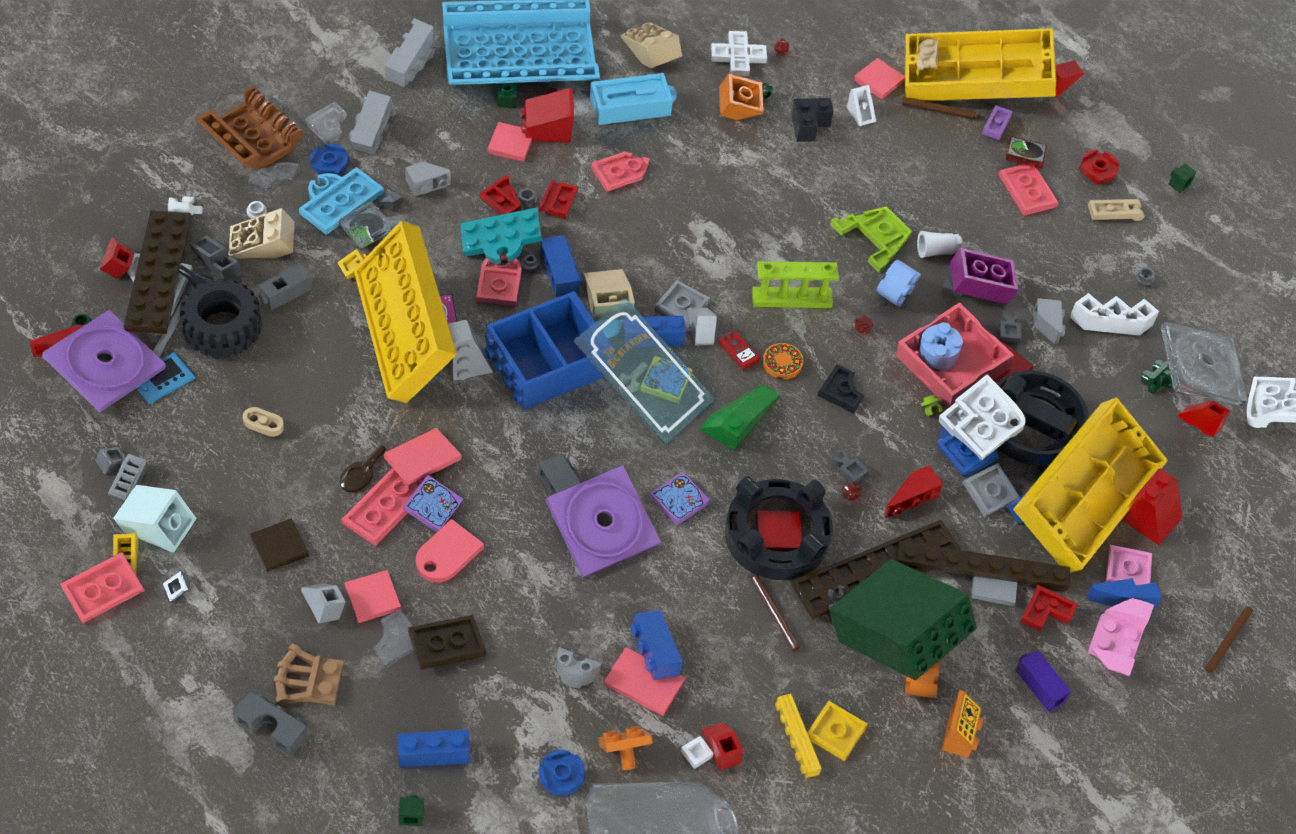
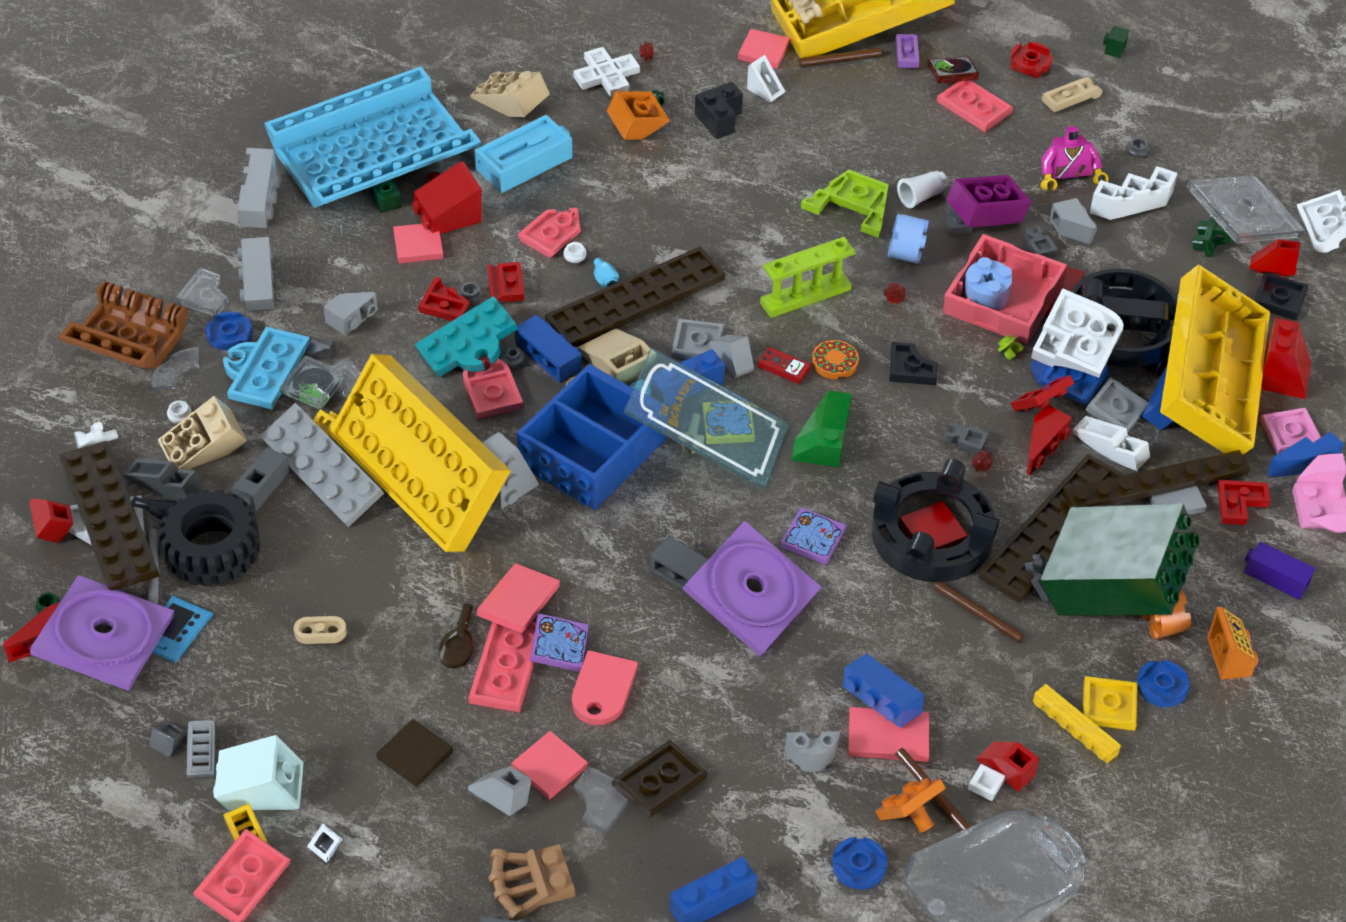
camera: 20 degrees left, 5 degrees down
(336, 293) = (322, 465): none -> light grey plate
(626, 195) = (575, 252): none -> white plate
(640, 222) = (605, 273): none -> medium azure plant
(652, 249) = (635, 297): none -> dark brown plate
(652, 748) = (940, 799): none -> reddish brown bar
(890, 733) = (1163, 683): none -> blue tile
(924, 457) = (1040, 397): none -> red plate
(968, 518) = (1113, 442): none -> white slope
(1077, 264) = (1070, 158): none -> dark pink torso
(1191, 449) = (1281, 295): none -> black tile

